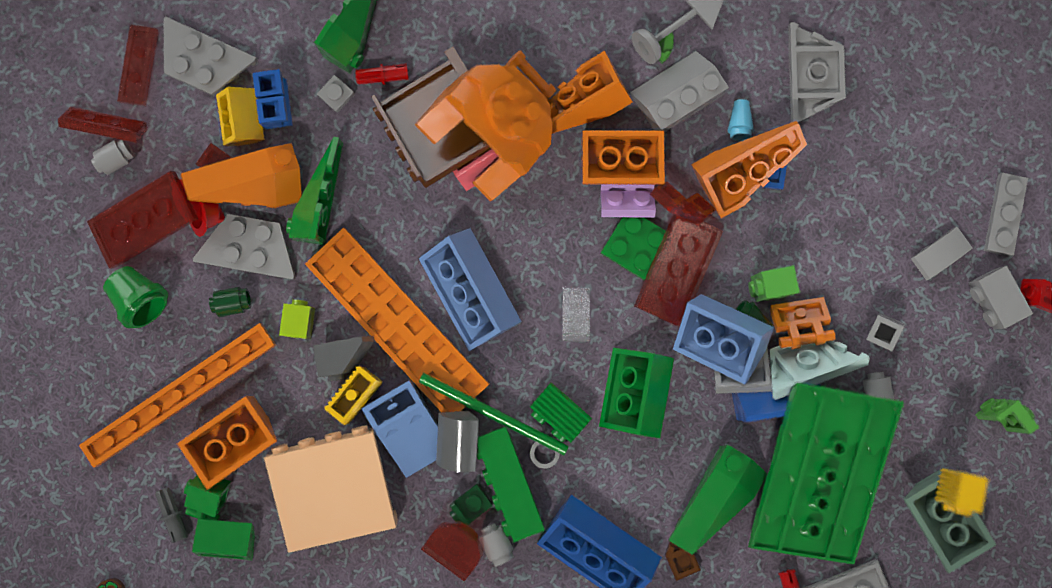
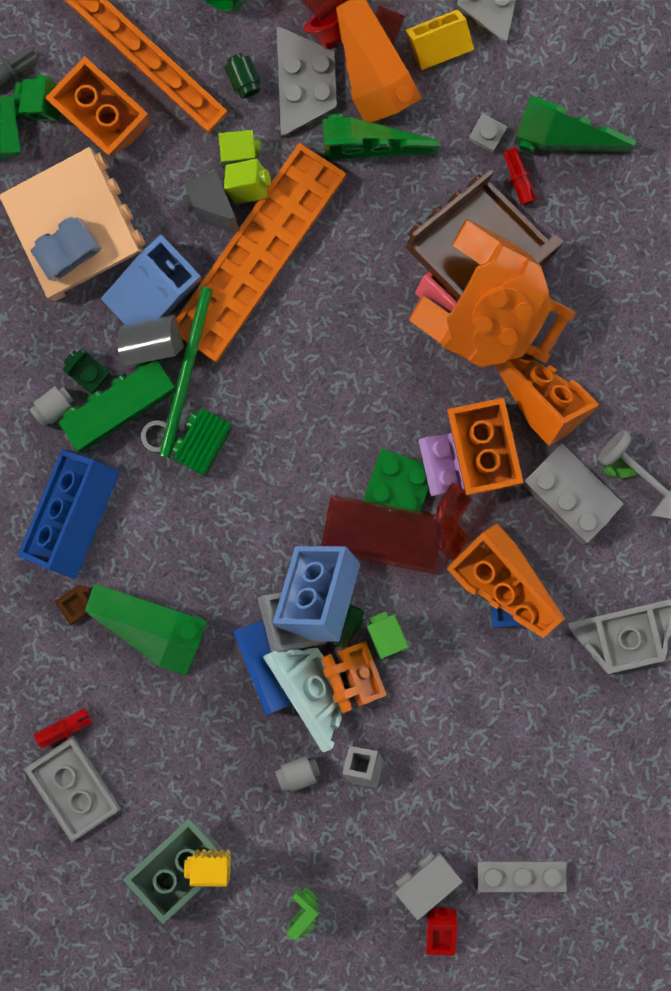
camera: 75 degrees right, 0 degrees up
(272, 99) = (463, 68): blue hips -> none
(329, 319) = (246, 181): none -> lime brick
(353, 395) = (173, 224): yellow brick -> none
(355, 500) = (65, 248): none -> sand blue brick
(455, 548) = (39, 364): clear red tile -> none
(469, 289) = (311, 319): medium blue slope -> none
(576, 315) = (308, 436): clear plate -> none
(636, 392) = (240, 518): green slope -> none
(741, 121) = (554, 568): medium azure cone -> none
(824, 473) = (197, 728): green piece -> none
(941, 253) = (462, 813): light grey slope -> none

